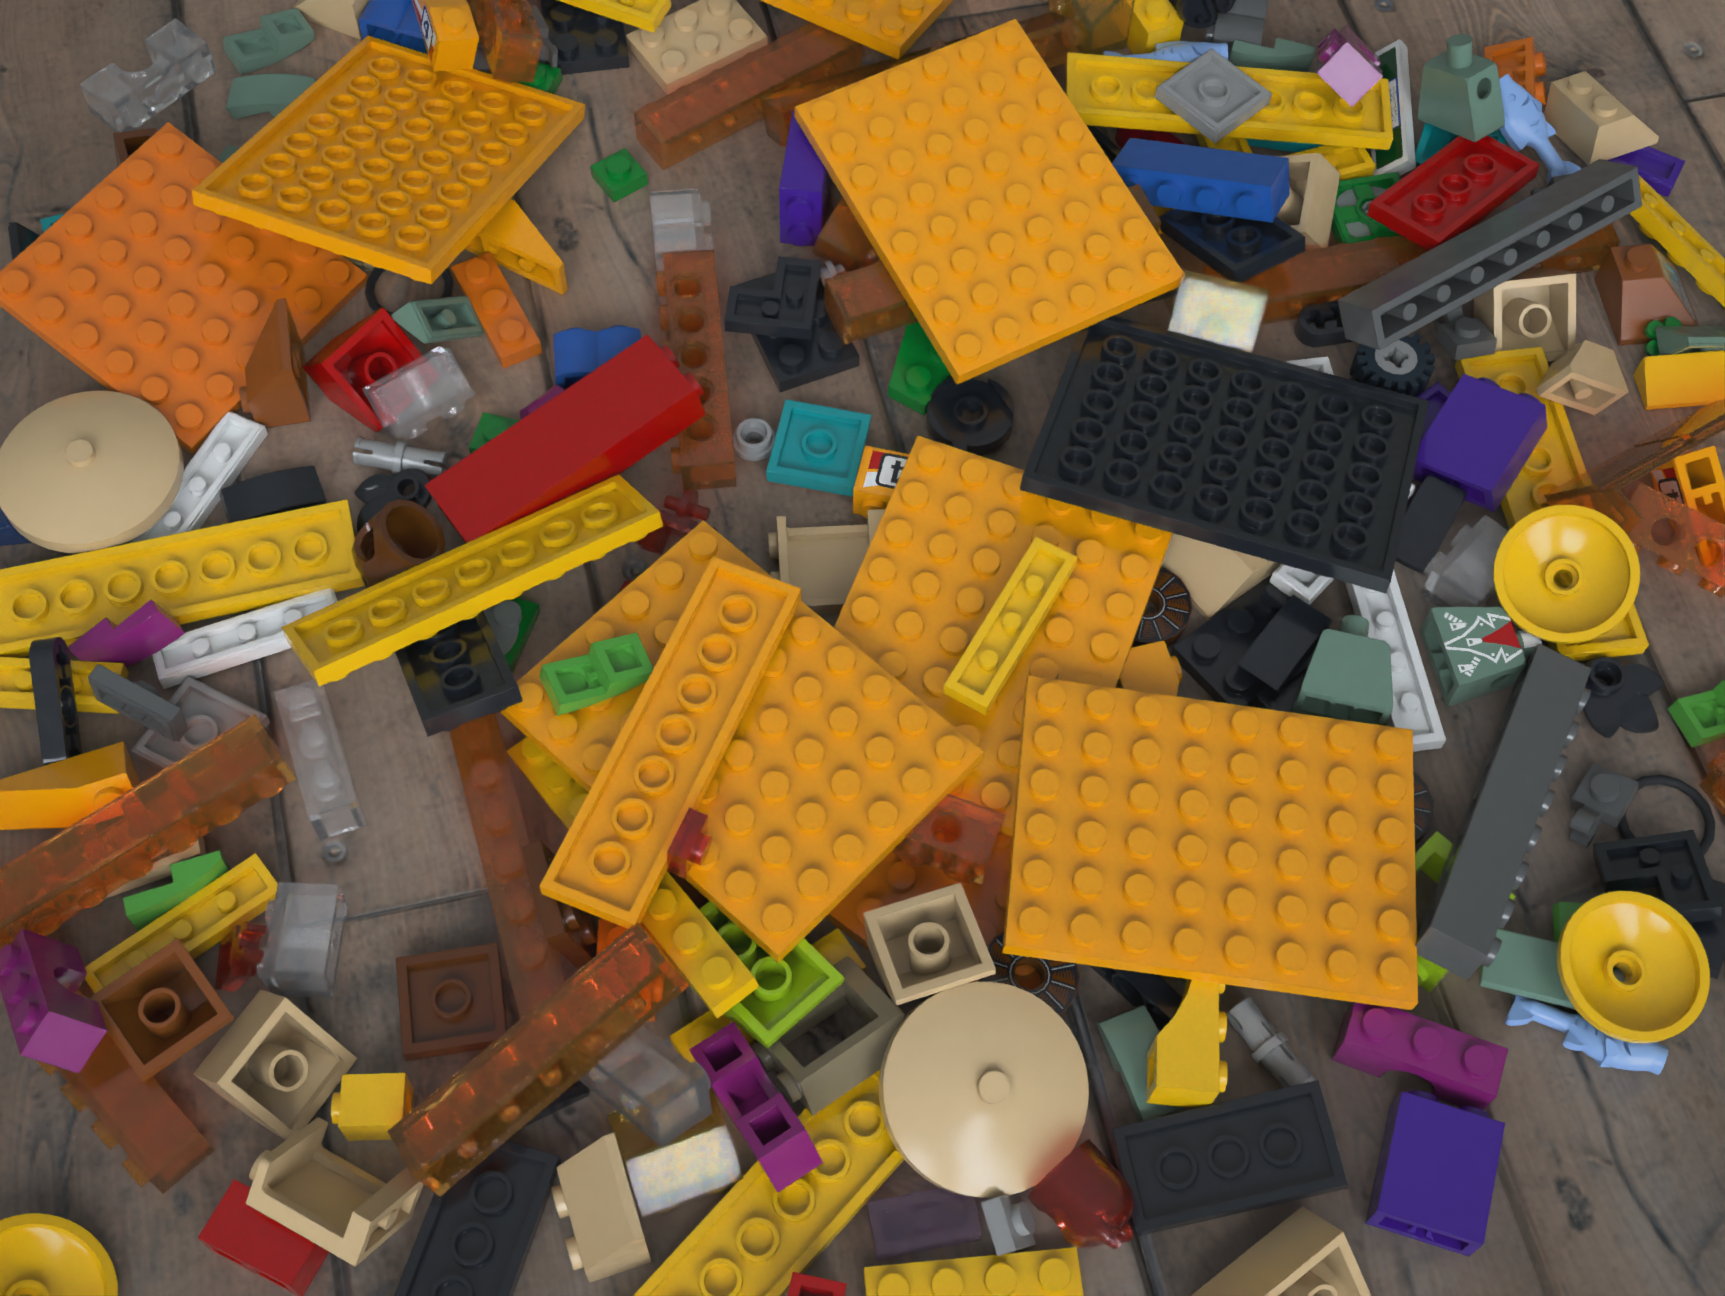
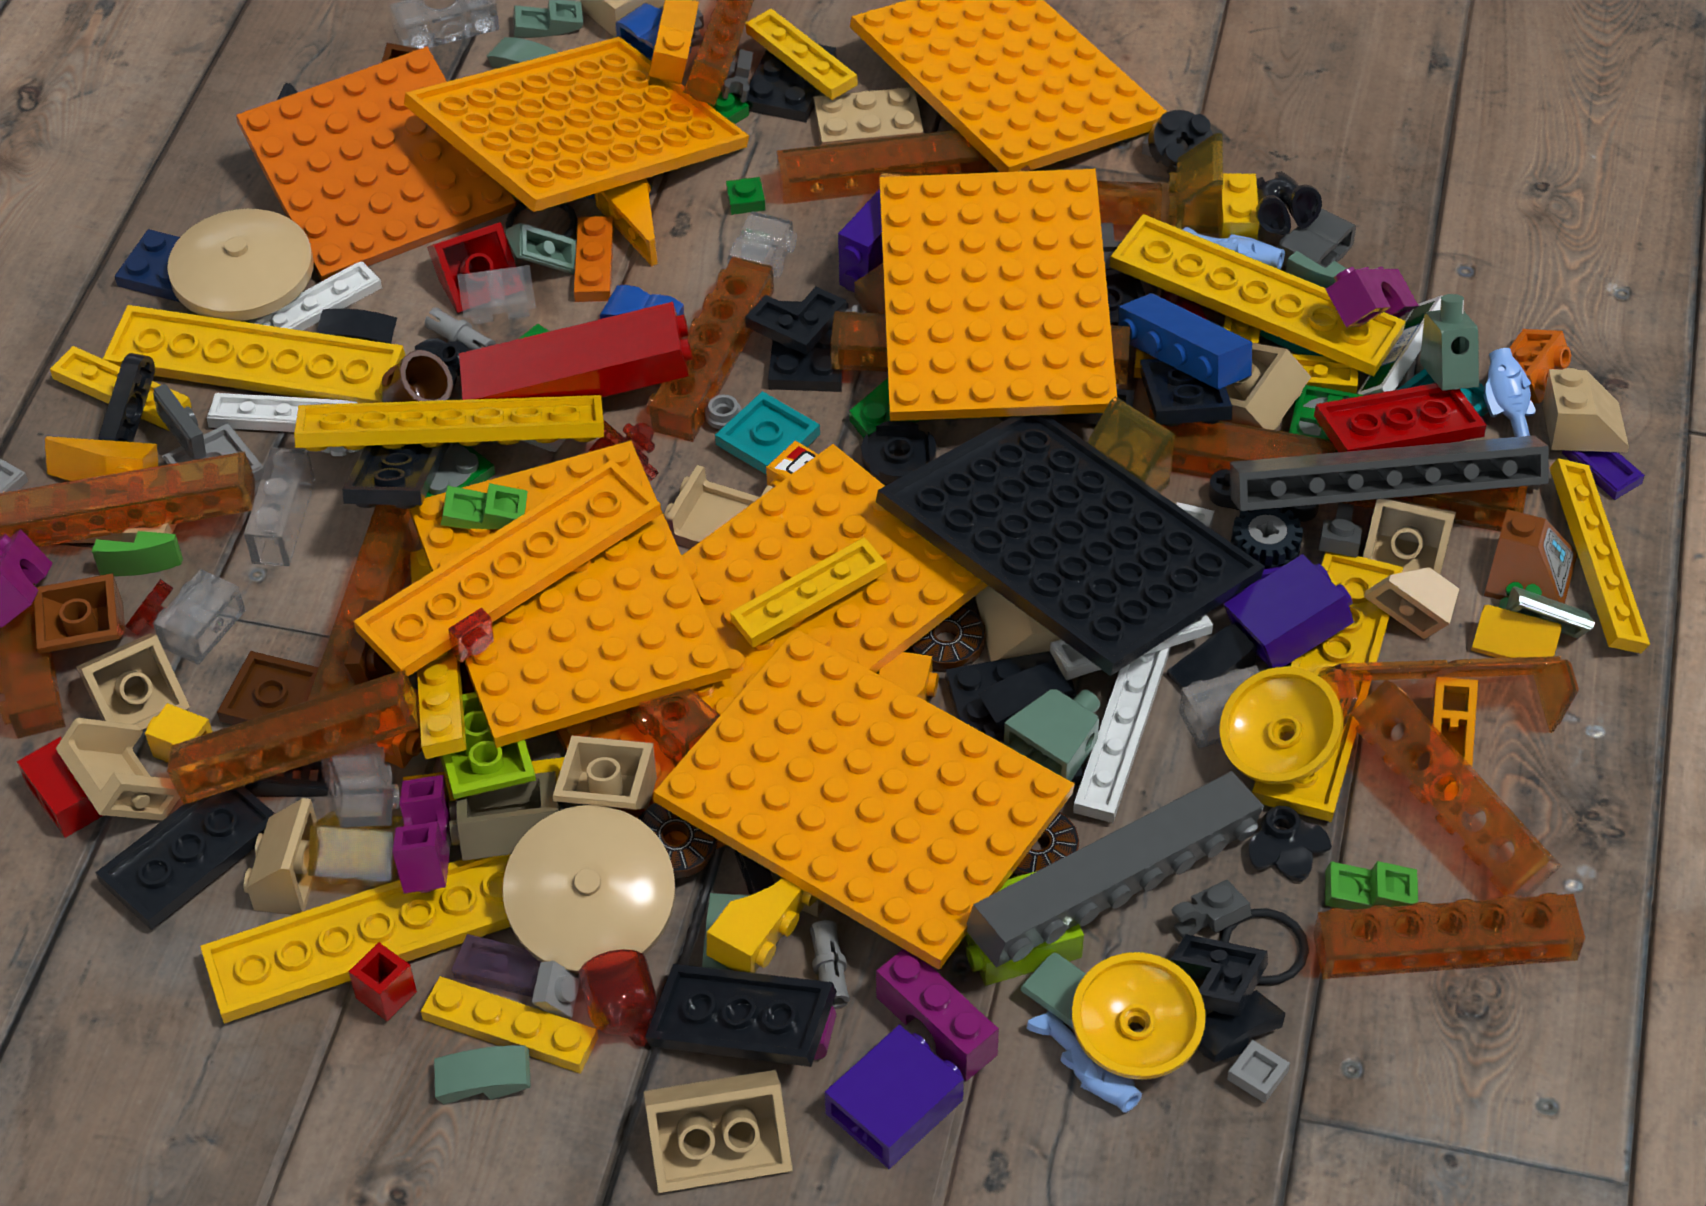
camera: 30 degrees right, 10 degrees down
(132, 640) = (201, 382): magenta slope -> none
(196, 921) = (139, 577): yellow plate -> none
(274, 374) = (403, 252): dark orange slope -> none
(1213, 95) = (1240, 283): light grey tile -> none
(1474, 650) = (1183, 760): sand green torso -> none

